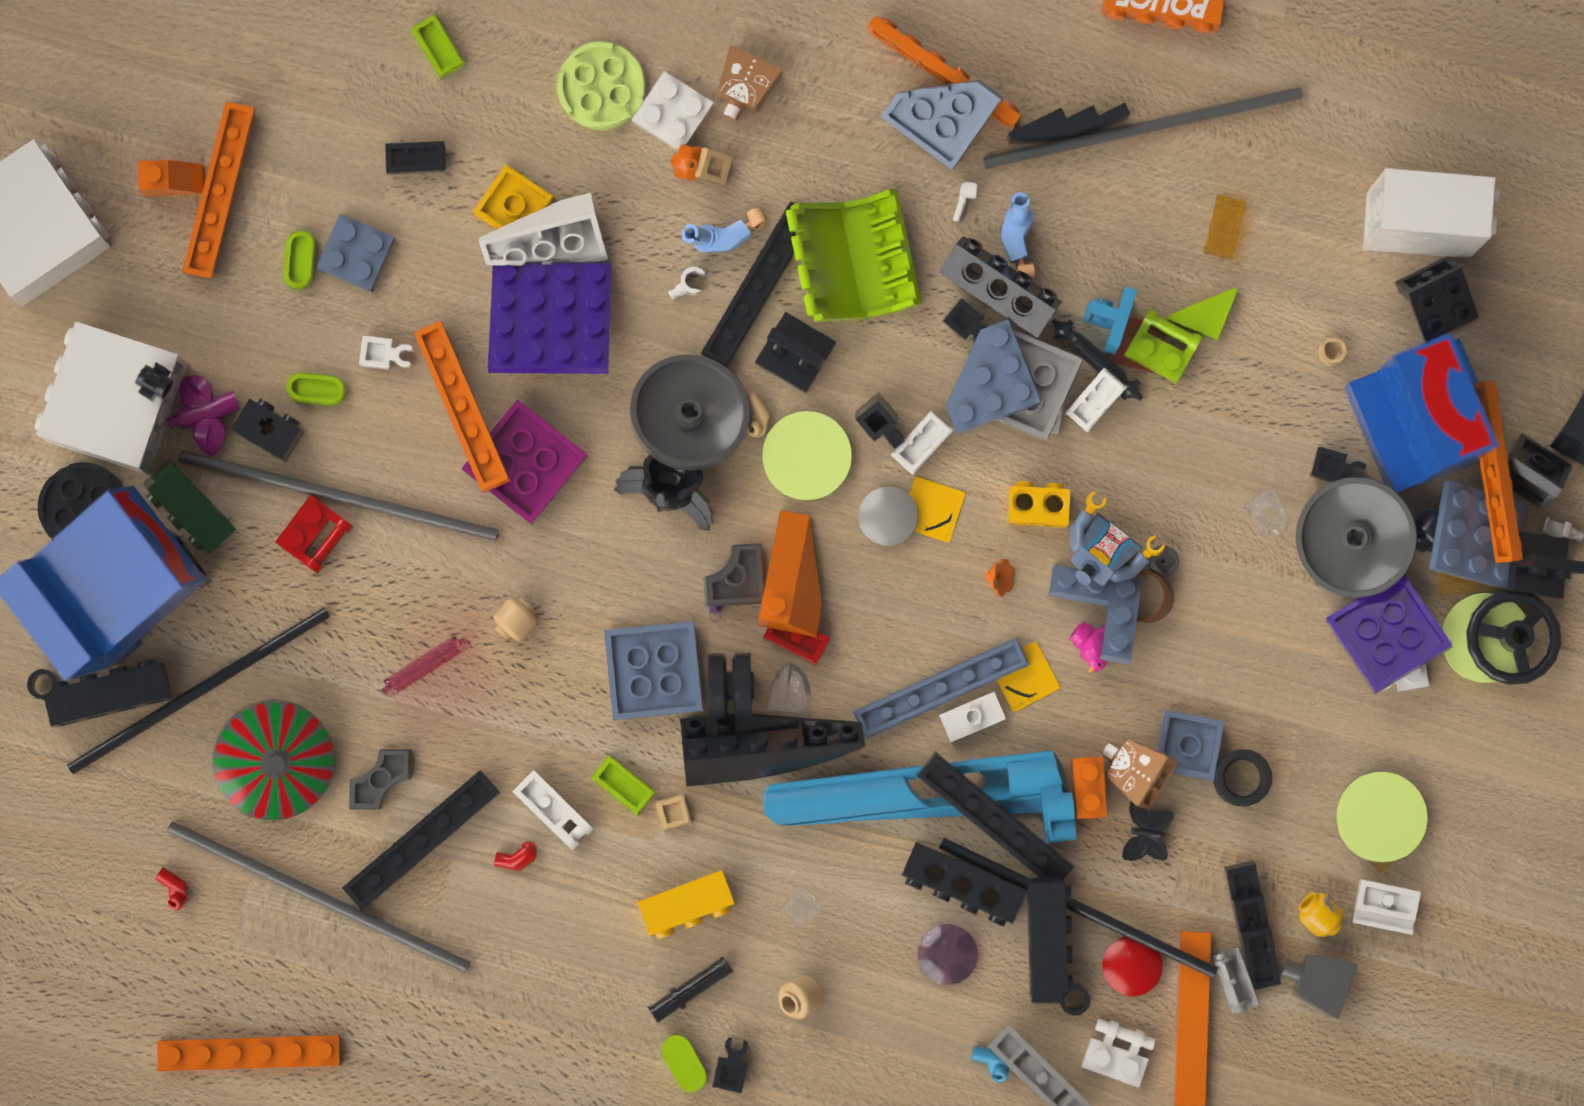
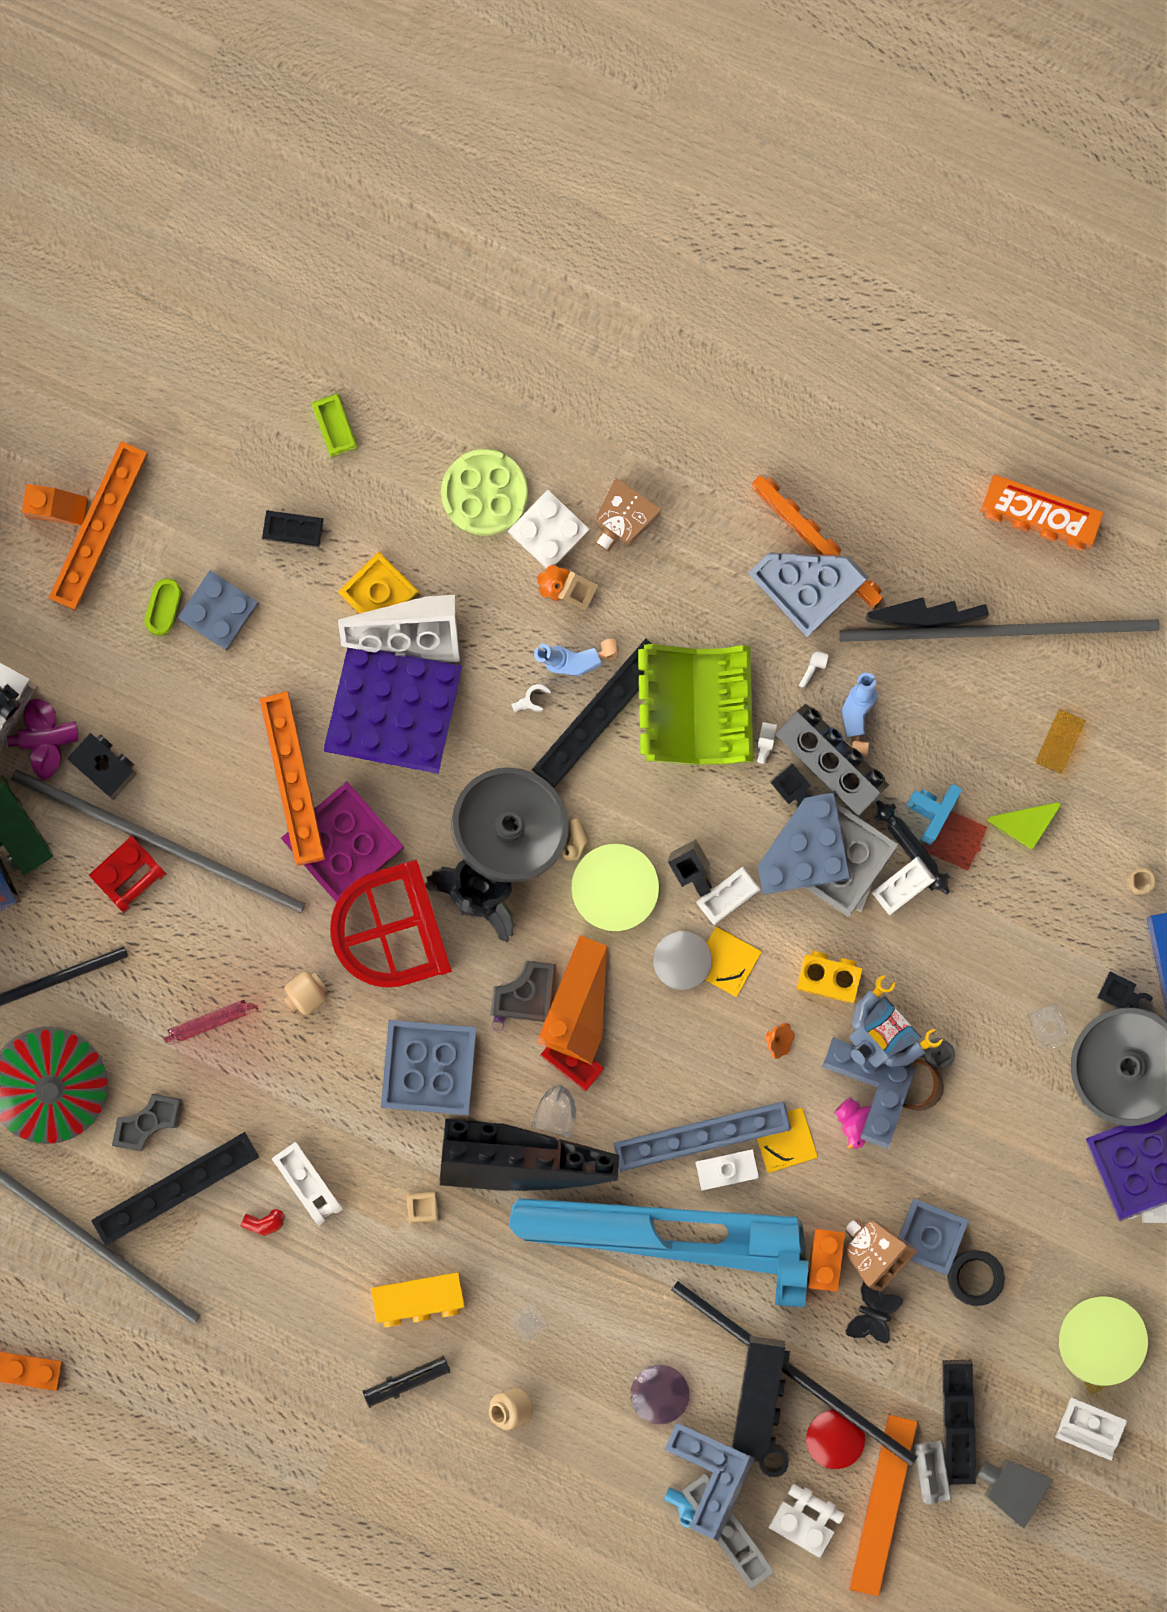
camera: 10 degrees right, 0 degrees up
(316, 389) = (155, 734): lime tile -> none
(380, 353) = (223, 710): white plate -> none
(619, 522) = (423, 919): none -> red window
(623, 785) = (379, 1172): lime tile -> none
(684, 1063) = (387, 1451): lime tile -> none
(730, 685) = (504, 1097): black wheel -> none
(731, 1071) = (430, 1467): black plate -> none
(795, 352) = (622, 785): black bracket -> none
(930, 281) = (766, 741): none -> white piece
(993, 818) = (728, 1272): black tile -> none
(1009, 894) = (730, 1348): black brick -> none
(1032, 1021) = (728, 1476): none -> sand blue plate
(1159, 355) = (972, 853): lime plate -> none
(1321, 914) = (1026, 1424): yellow head -> none

